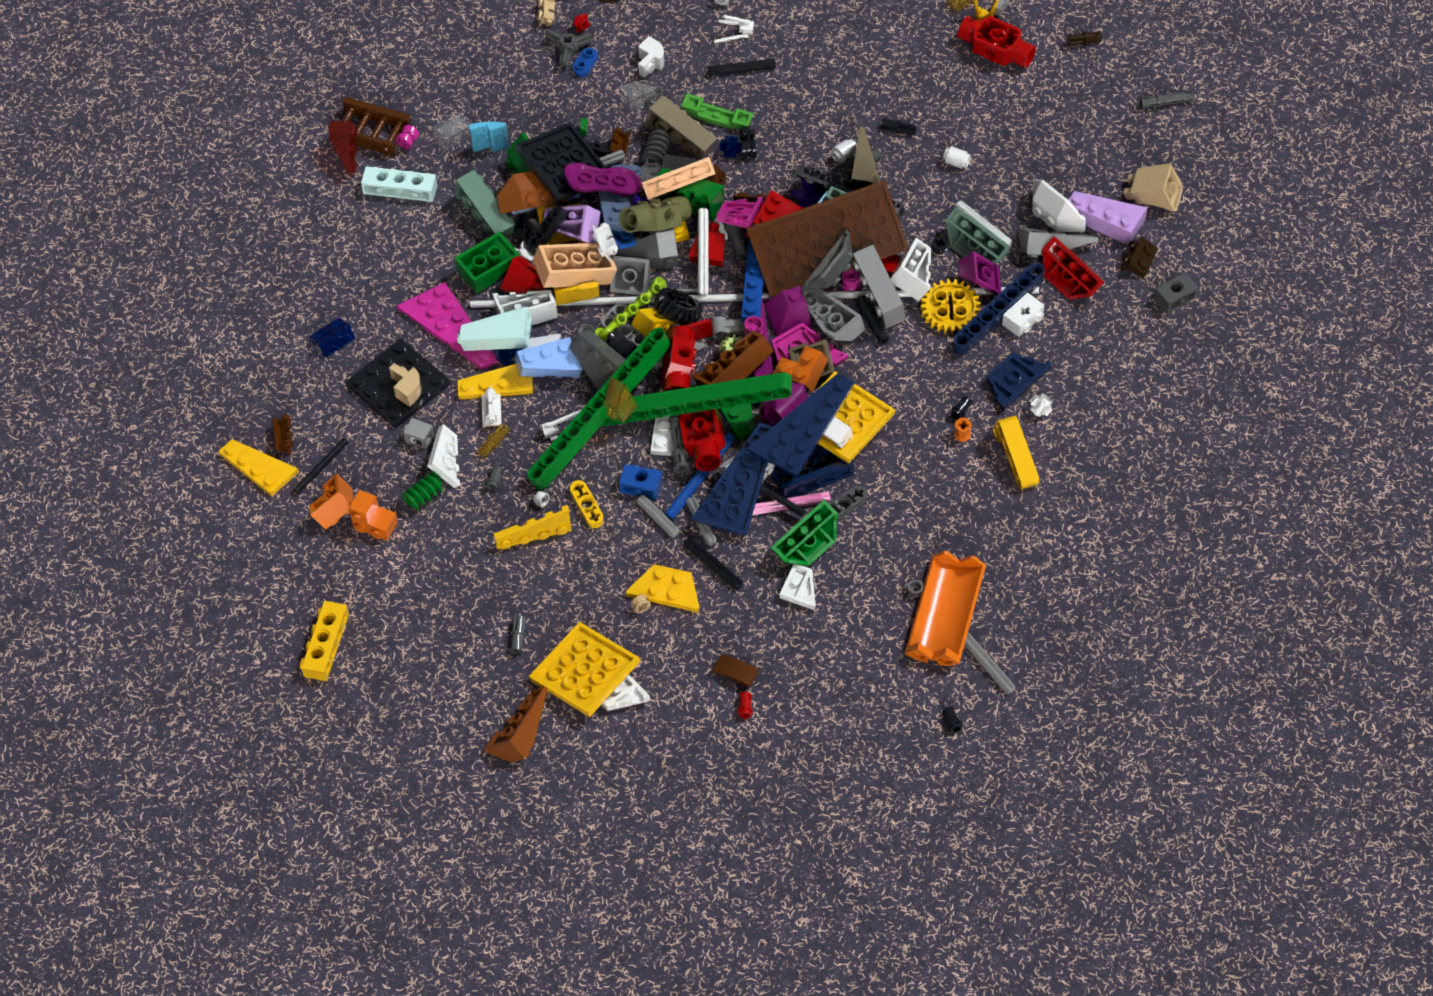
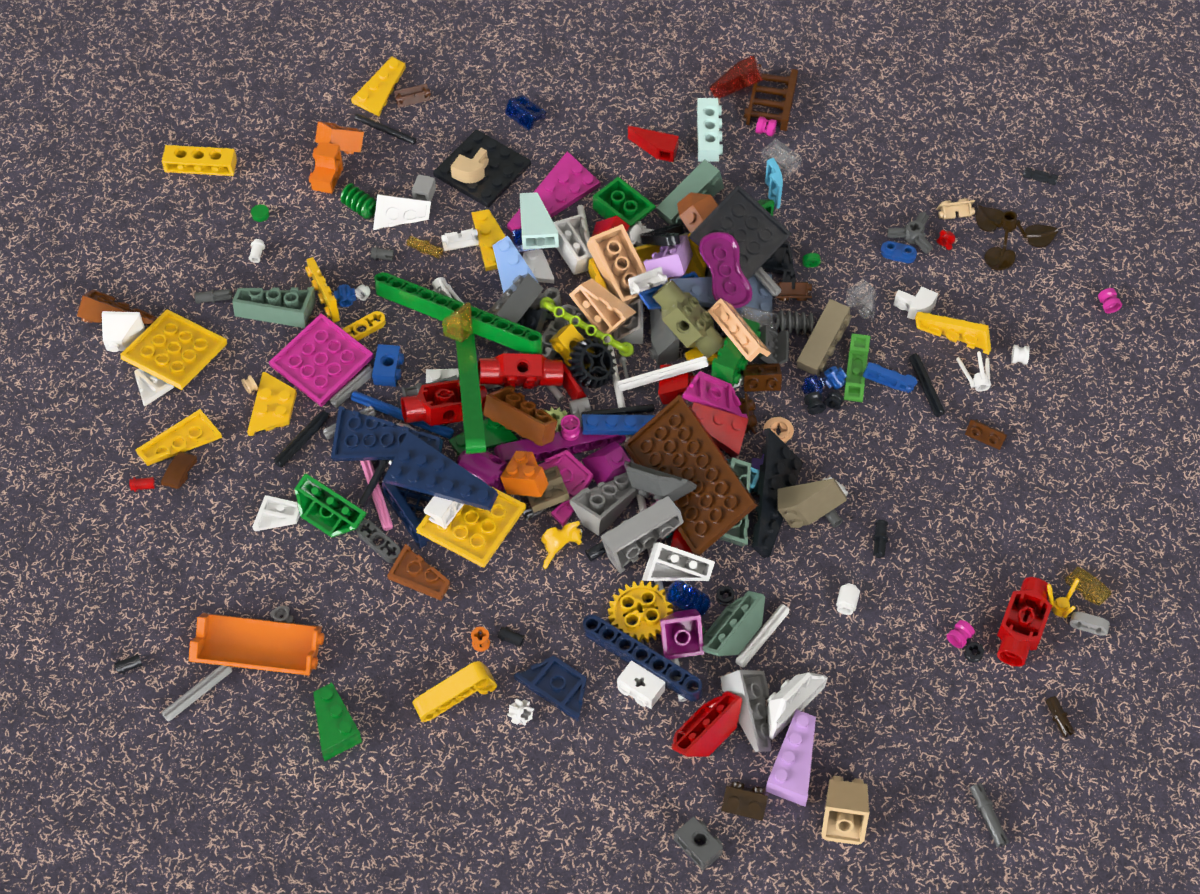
camera: 80 degrees right, 0 degrees up
(408, 228) = (658, 144): none -> red slope
(411, 588) = (260, 213): none -> green tile
(464, 592) = (256, 251): none -> white pin
(544, 508) = (345, 295): none -> blue gear
(548, 571) = (275, 305): none -> sand green wedge
(553, 717) = (121, 329): none -> white slope
(619, 286) = (601, 306): none -> light nougat wedge
(623, 538) = (321, 359): none -> dark pink plate
(693, 26) = (968, 332): none -> yellow wing
(693, 665) = (181, 437): none -> yellow wing
(724, 128) = (834, 377): none -> blue gear
(732, 89) = (889, 377): none -> blue hinge
(732, 296) = (623, 410): none -> black bar
(766, 178) = (784, 425): none -> light nougat gear
(802, 35) = (985, 434): none -> reddish brown hinge
(866, 361) = (556, 539): none -> yellow animal
(886, 475) = (418, 575): none -> dark orange wing
(938, 267) = (687, 597): none -> clear blue piece
(1002, 87) = (962, 632): none -> dark pink wheel
(1017, 87) = (980, 651): none -> black bush
(1035, 547) = (334, 722): none -> green wedge

